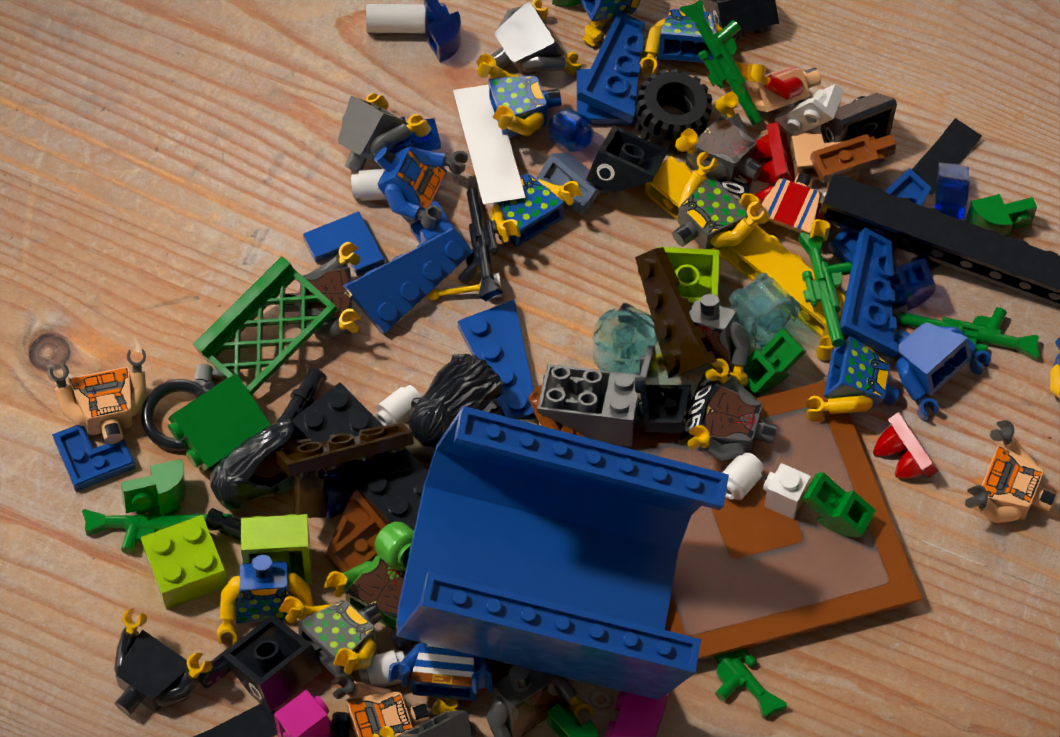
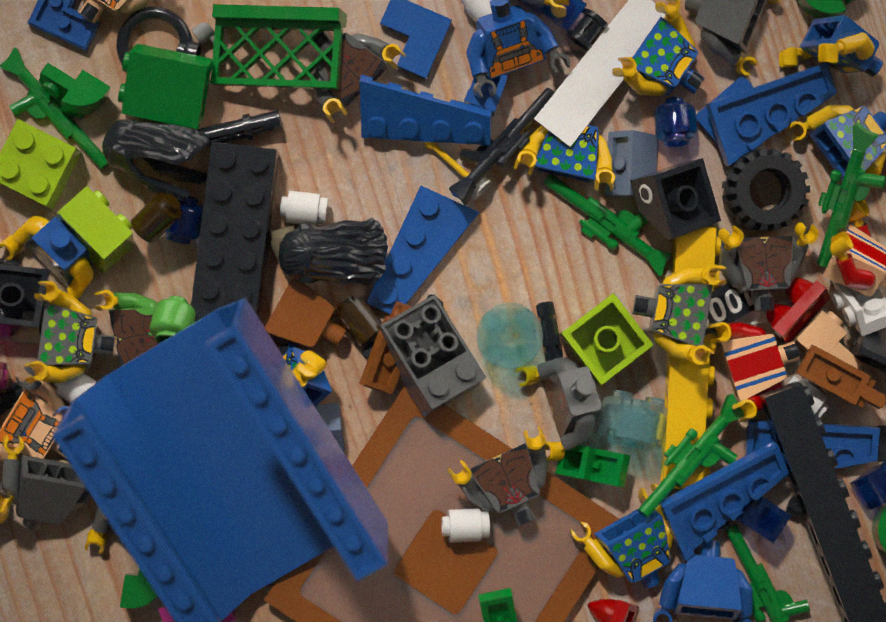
camera: 50 degrees right, 25 degrees up
(229, 525) = (96, 173): black axle -> none
(342, 448) = (194, 202): dark brown wing -> none
(354, 535) = (166, 273): dark orange wing -> none
(451, 134) = (577, 34): none -> black bush
(599, 230) = (604, 222): none -> green piece
(661, 406) = (481, 408): black bracket -> none
(676, 333) = (552, 361): dark brown wing -> none
(698, 405) = (508, 438): black sticker -> none
(785, 490) = (481, 572): white brick -> none

